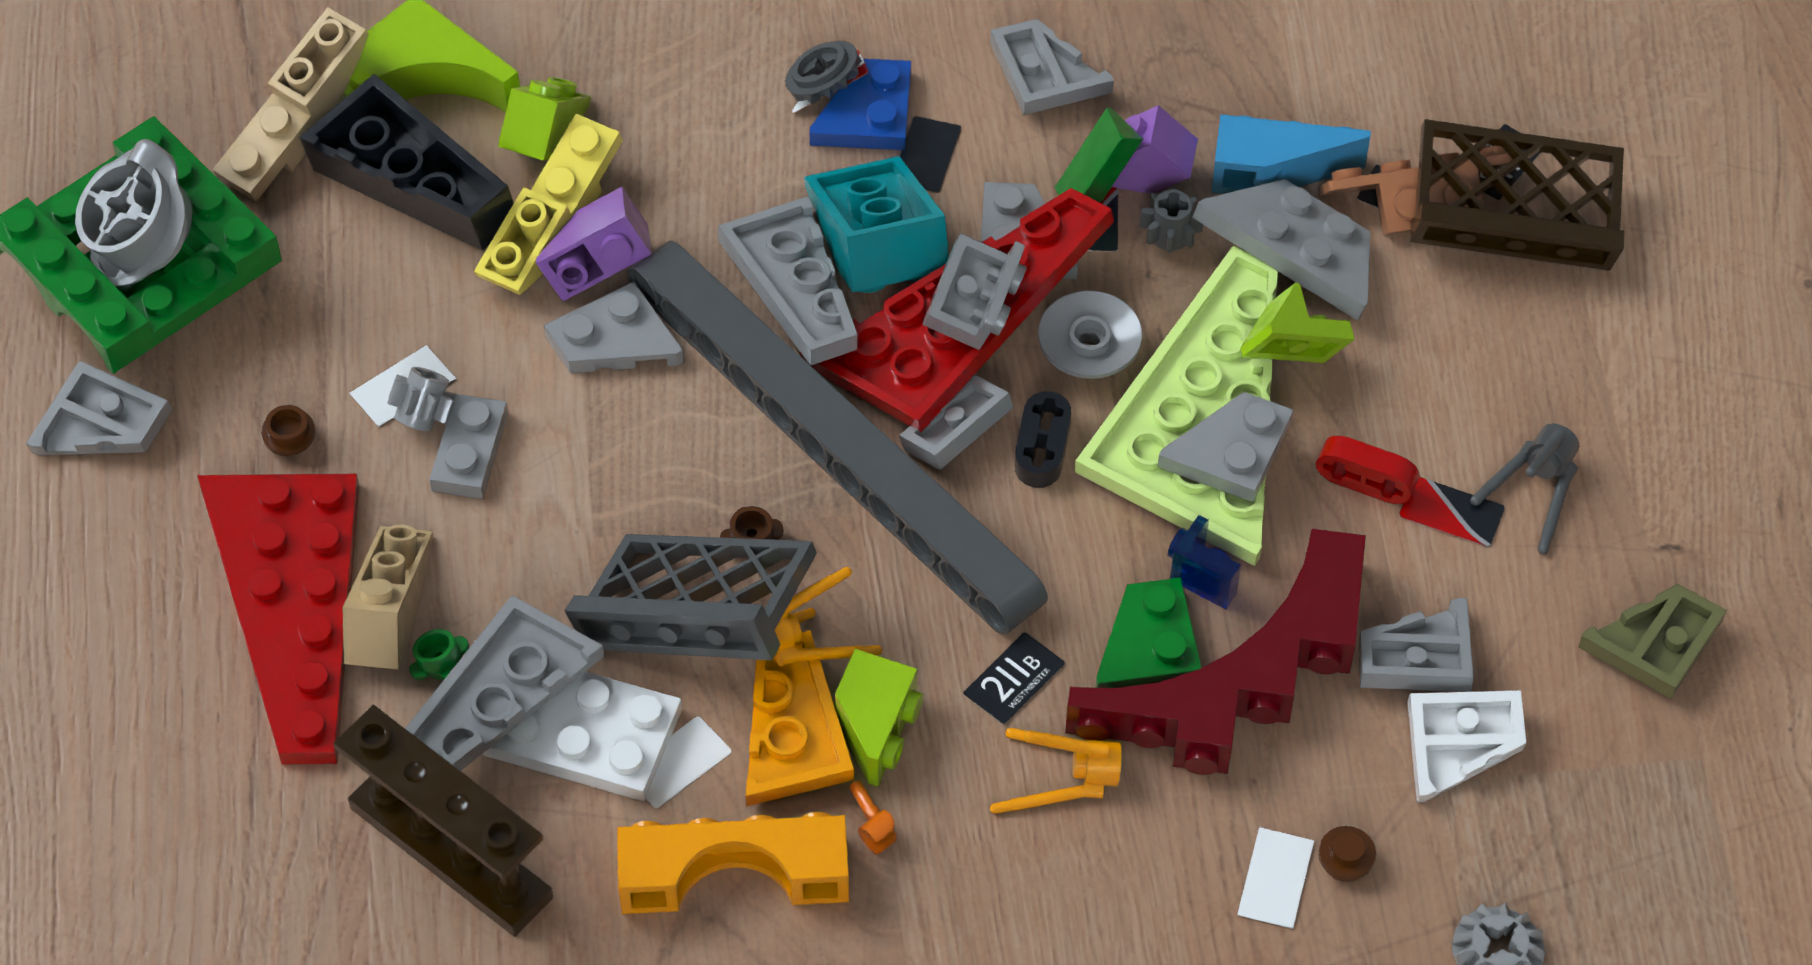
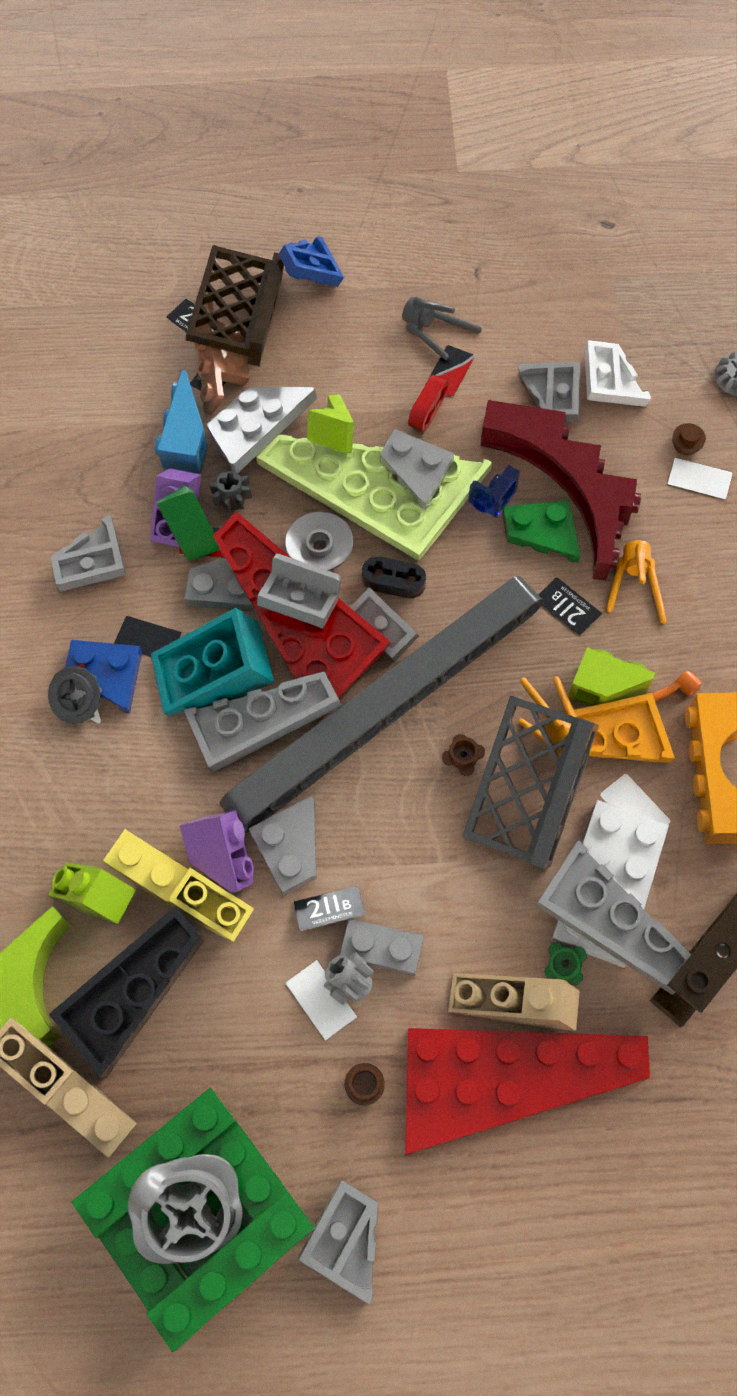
camera: 85 degrees left, 10 degrees up
(523, 383) = (329, 908): none -> sticker
(1626, 290) = (311, 262): none -> blue wing
(1658, 638) = (545, 279): olive wing -> none

